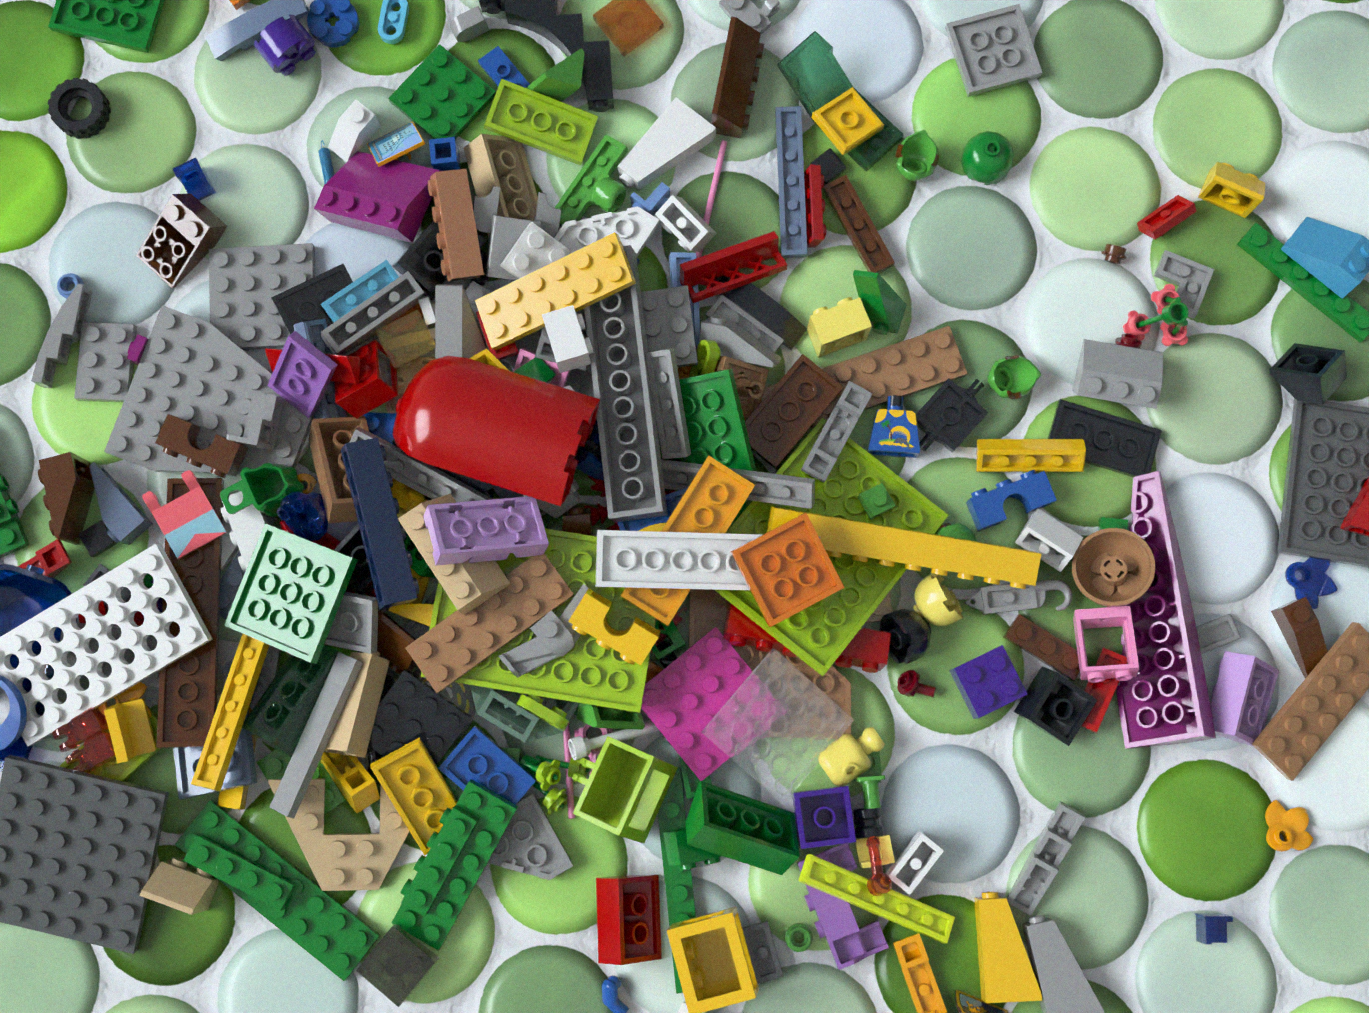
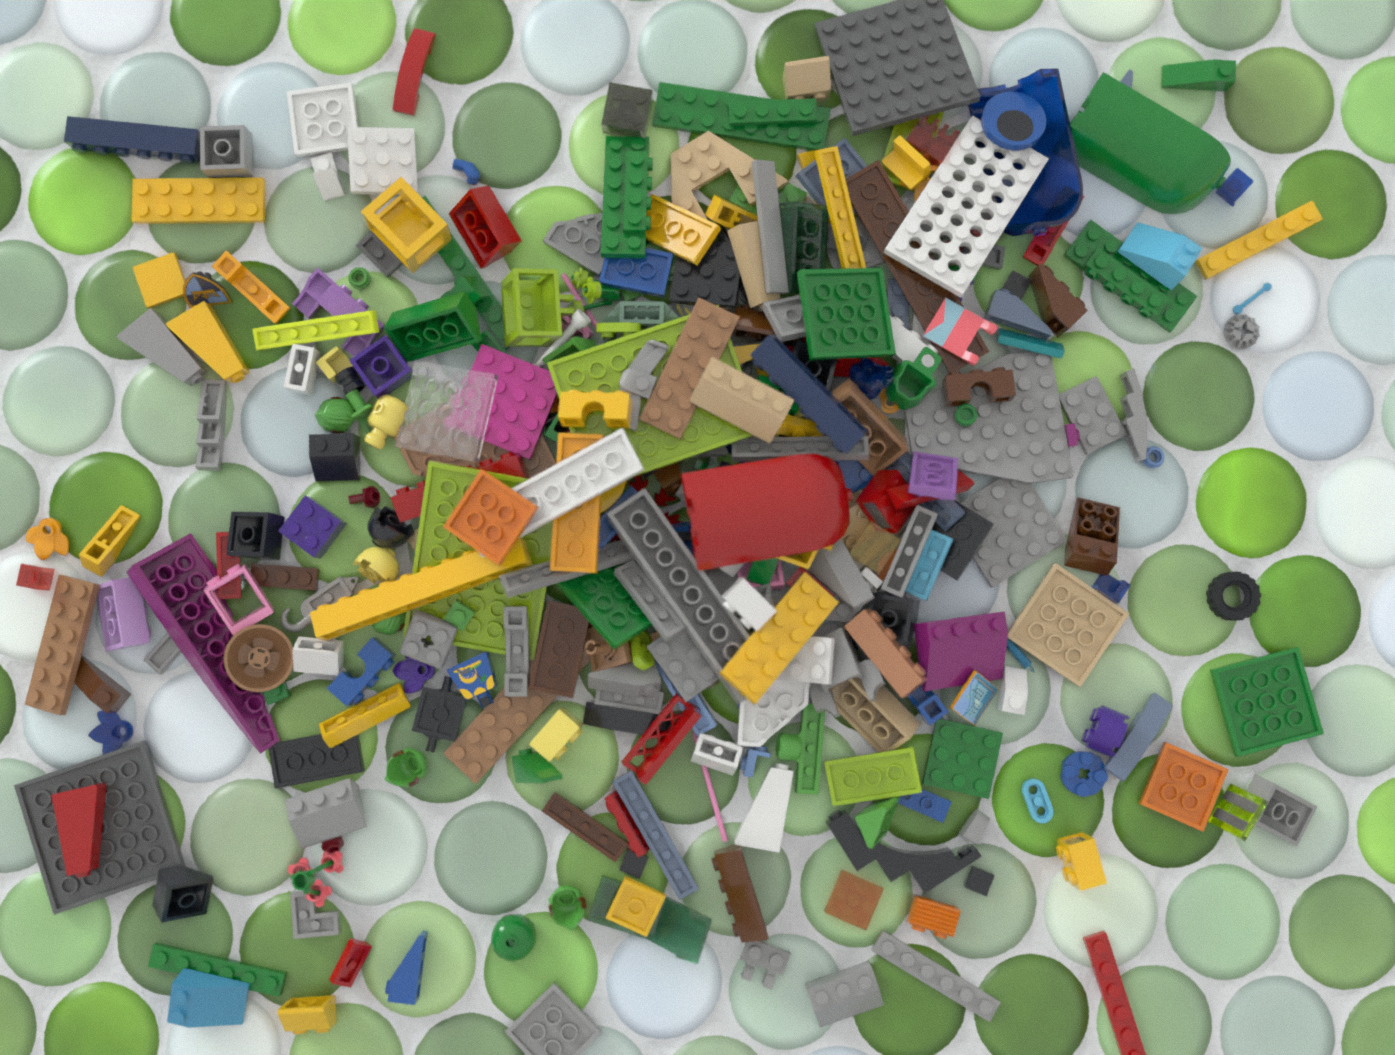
camera: 150 degrees right, 5 degrees up
(119, 466) = (1030, 343): none -> teal tile
(232, 424) = (965, 415): none -> green tile
(260, 167) = (1067, 624): none -> tan plate
(261, 422) = (944, 425): light grey panel -> none
(485, 530) = (725, 426): lavender piece -> none
(879, 882) = (319, 340): clear red piece -> none
(902, 793) = (335, 415): none -> bright green hair
(925, 508) = (416, 645): none -> light grey brick
(926, 747) = (335, 457): none -> black slope
(959, 474) = (411, 673): none -> dark purple plate
(1114, 253) = (377, 911): reddish brown plate -> none
(1115, 175) = (406, 981): none -> blue slope
(1212, 927) = (70, 439): clear blue panel -> none
(1218, 787) = (109, 541): none -> yellow slope
(1320, 790) = (35, 577): none -> clear red brick

